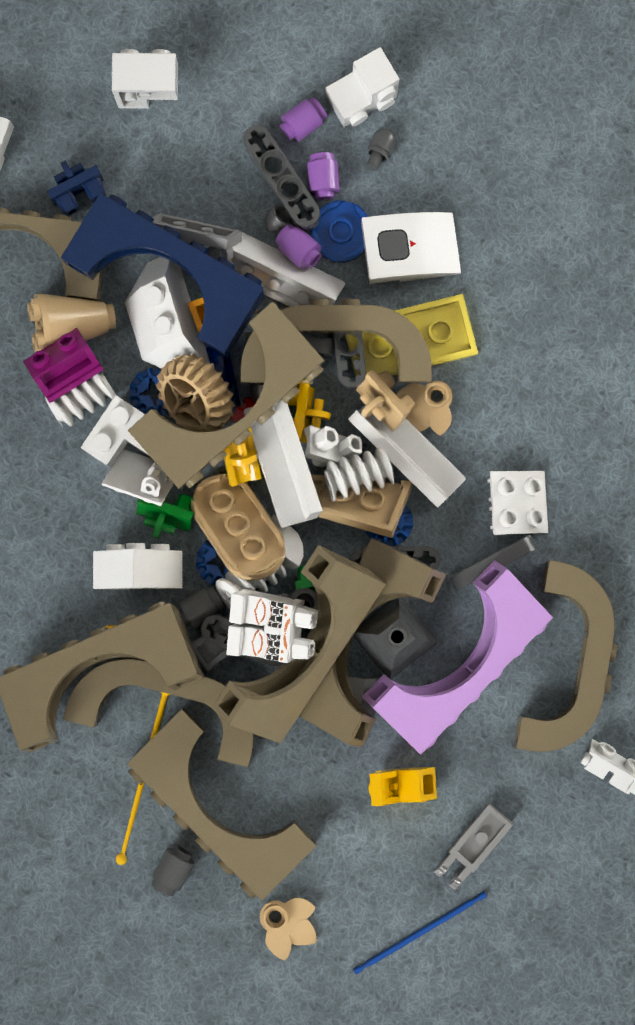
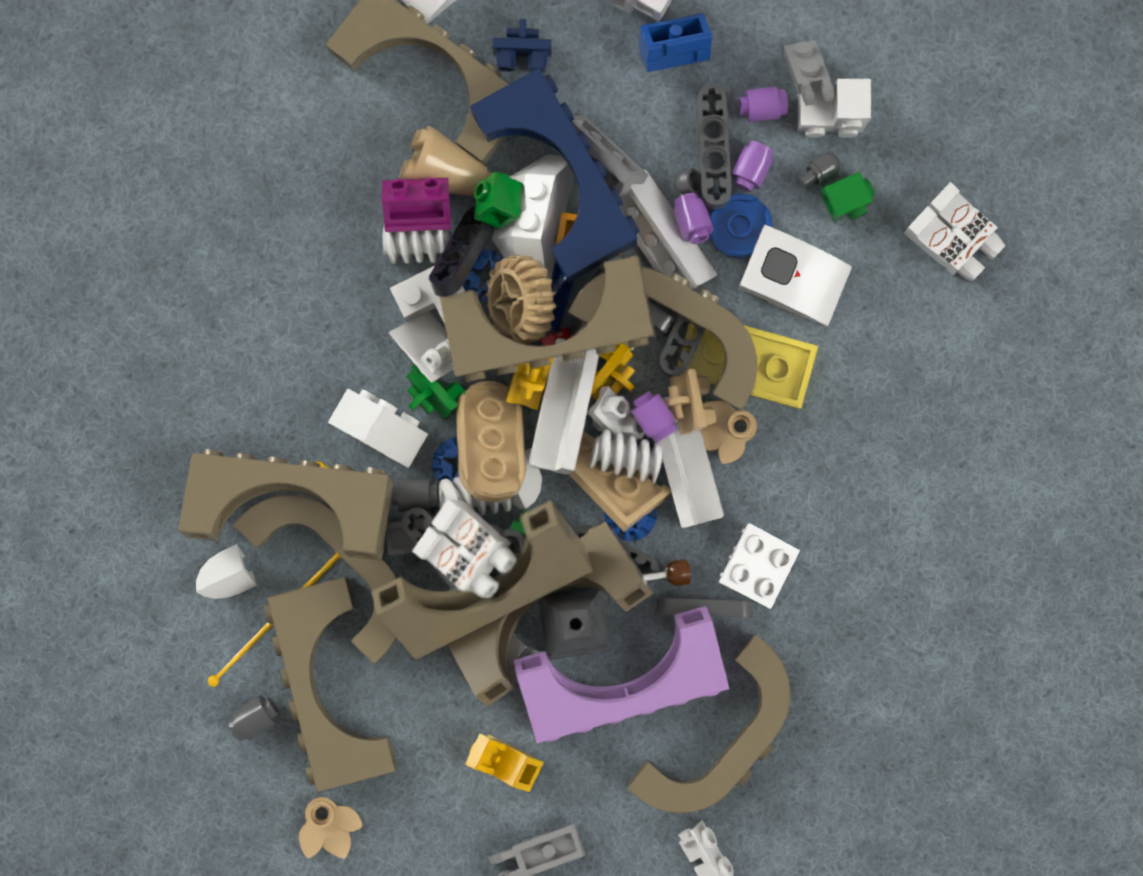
camera: 30 degrees right, 0 degrees up
(80, 765) = (225, 575): none -> white brick
(123, 381) = (459, 255): none -> black beam
(129, 323) = (498, 200): none -> green brick
(200, 109) = (675, 42): none -> blue brick
(325, 70) = (808, 71): none -> light grey hinge
(362, 428) = (654, 416): none -> medium lavender brick
(417, 156) = (848, 197): none -> green brick
(453, 547) = (676, 573): none -> reddish brown hinge
(519, 137) = (953, 232): none -> white hips

